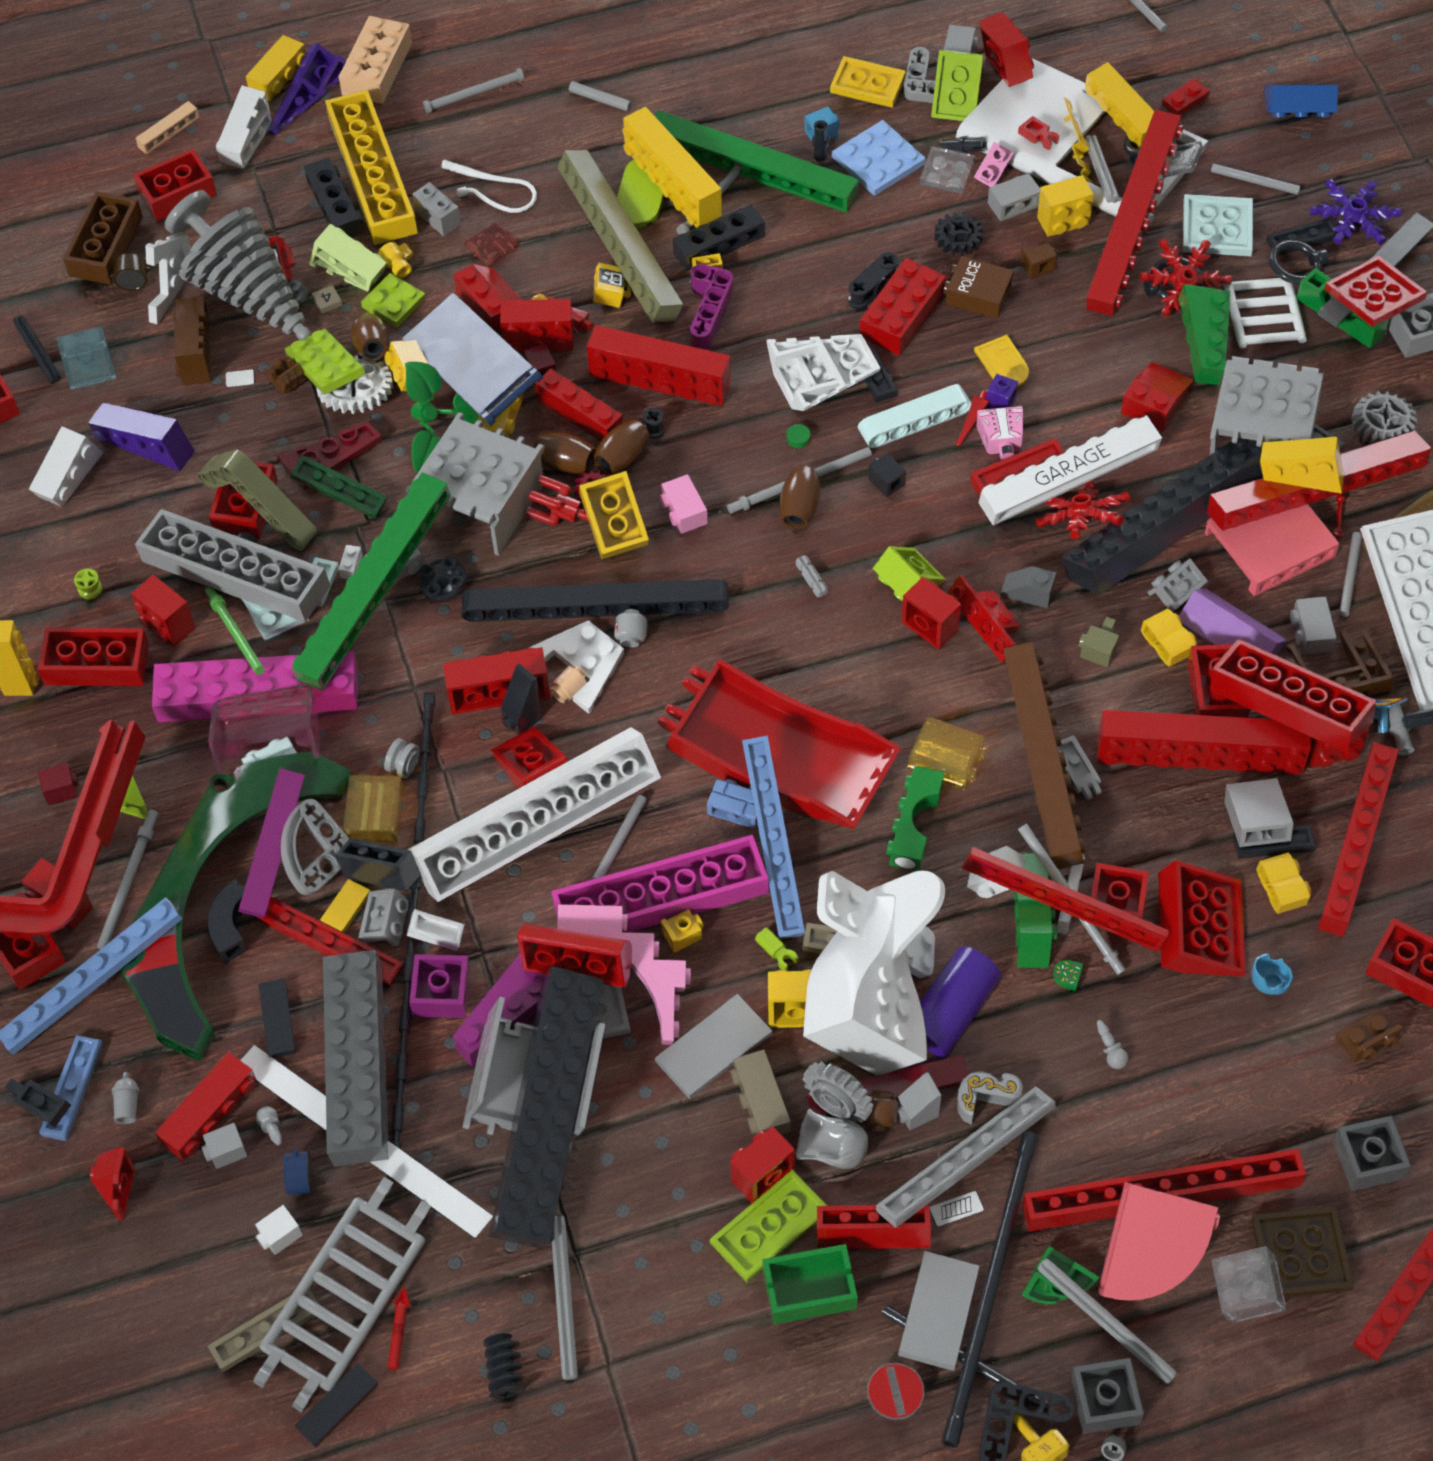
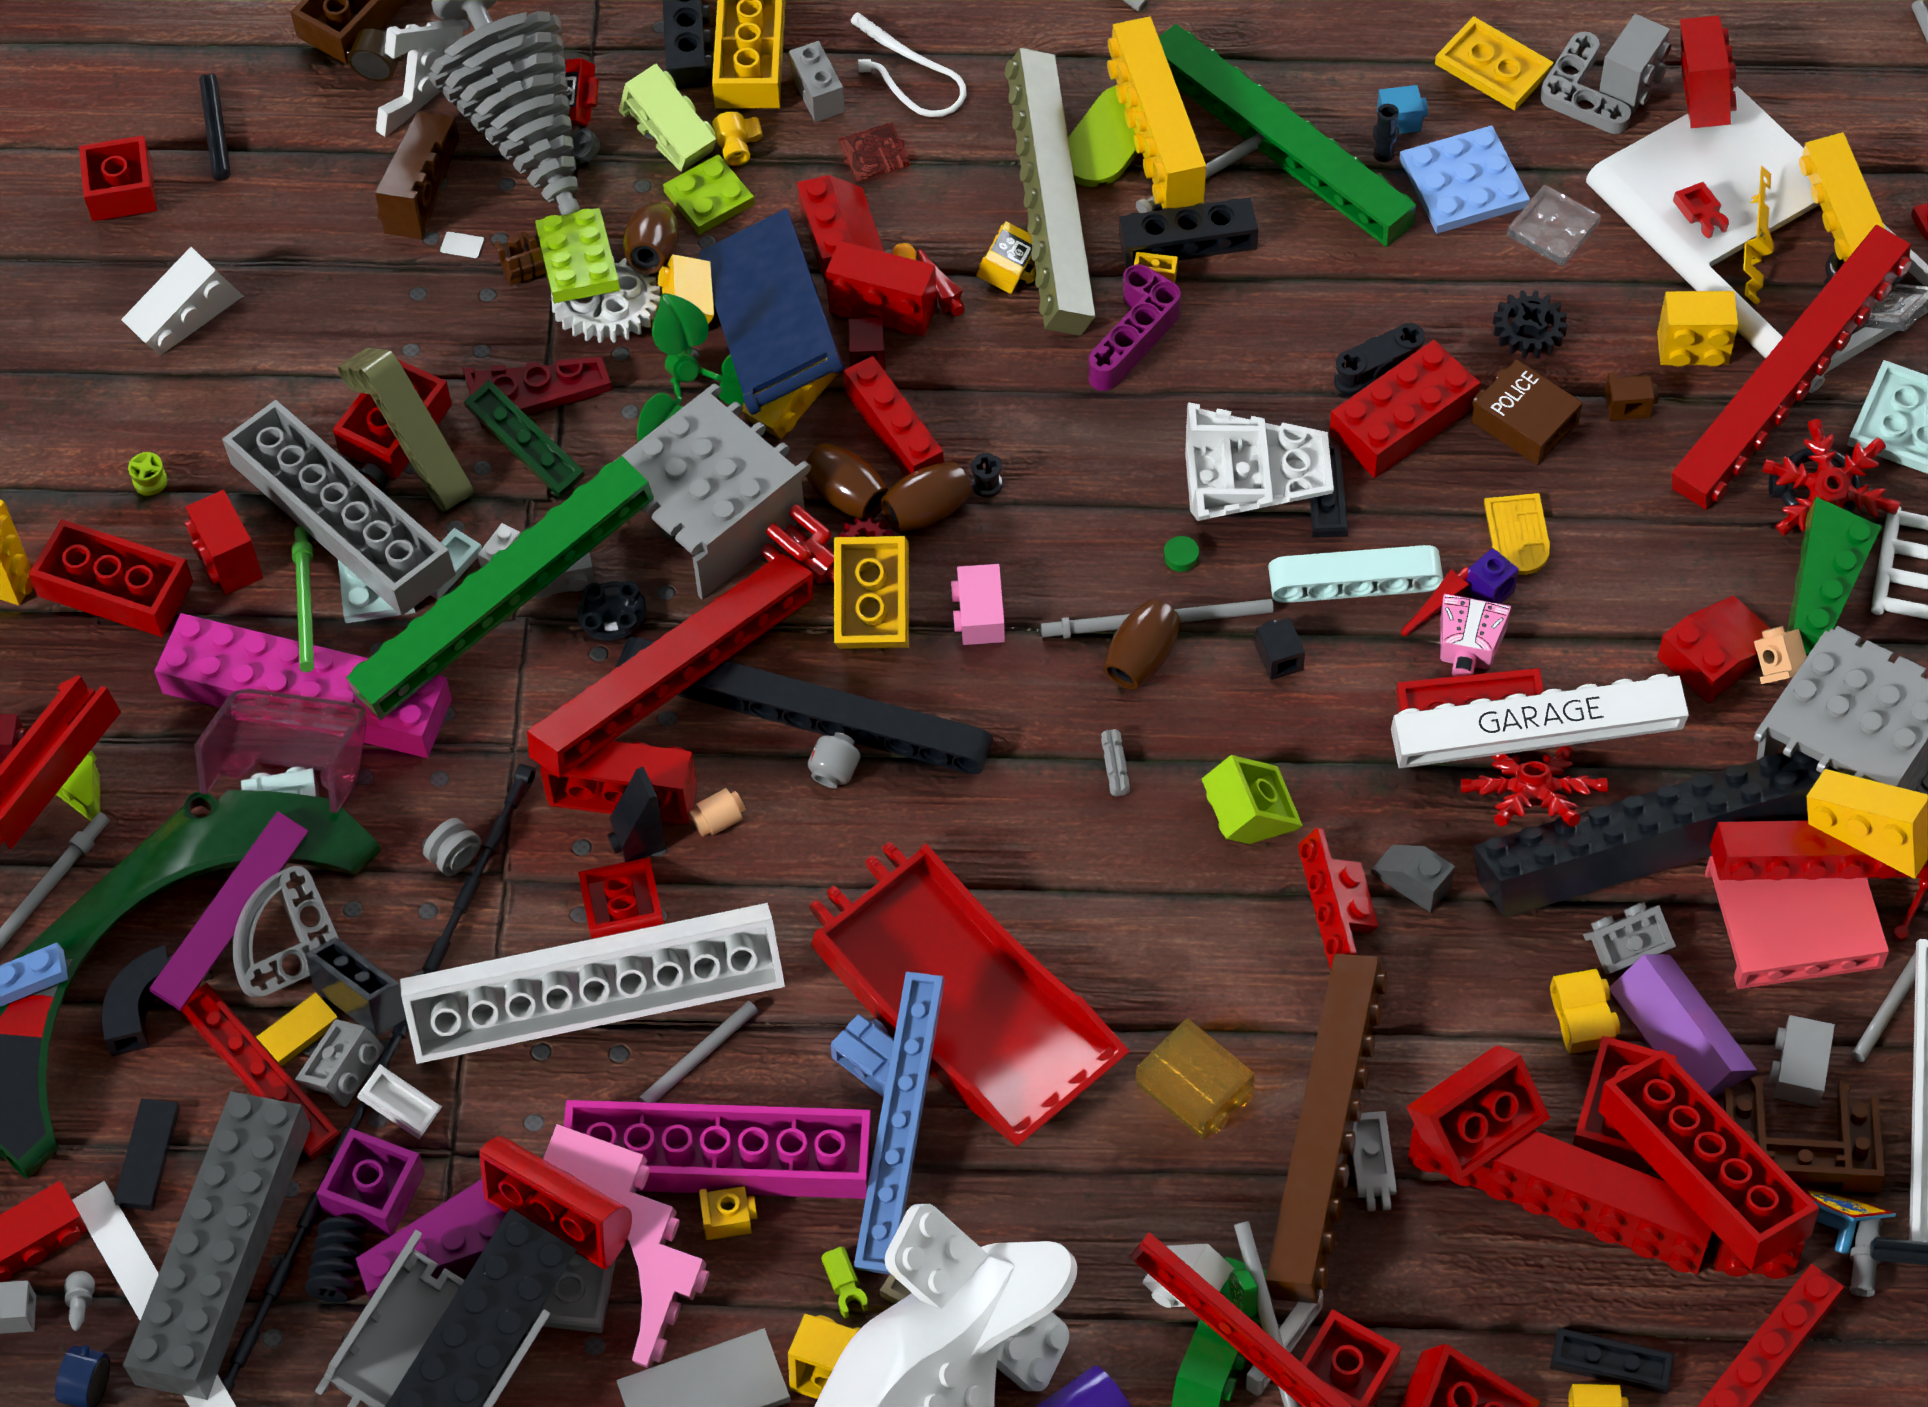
camera: 20 degrees right, 0 degrees up
(86, 357) = (271, 157): clear light blue slope -> none
(143, 434) = (299, 287): dark purple wedge -> none
(327, 299) = (620, 167): dark tan tile -> none
(373, 808) = (387, 905): clear yellow brick -> none
(436, 1042) = (332, 1259): none -> black piece
(502, 599) = (669, 665): none -> red brick
(591, 652) = (764, 776): white wing -> none
(659, 365) = (1025, 395): red brick -> none
(923, 792) = (1139, 1123): green arch -> none
(931, 612) = (1254, 869): red brick -> none
(956, 84) = (1612, 104): lime plate -> none
(964, 144) = (1591, 195): black pin -> none
(993, 165) = (1621, 238): bright pink hips -> none
(1014, 197) = (1631, 292): light grey brick -> none
(1039, 866) = (1244, 1291): none -> green tile
(1099, 643) = (1480, 990): olive brick -> none
(1101, 169) = (1775, 288): light grey axle -> none
(1141, 711) = (1479, 1111): none -> red slope
(1199, 387) = (1780, 654): none -> light nougat brick
(1258, 812) = (1602, 1311): light grey brick -> none

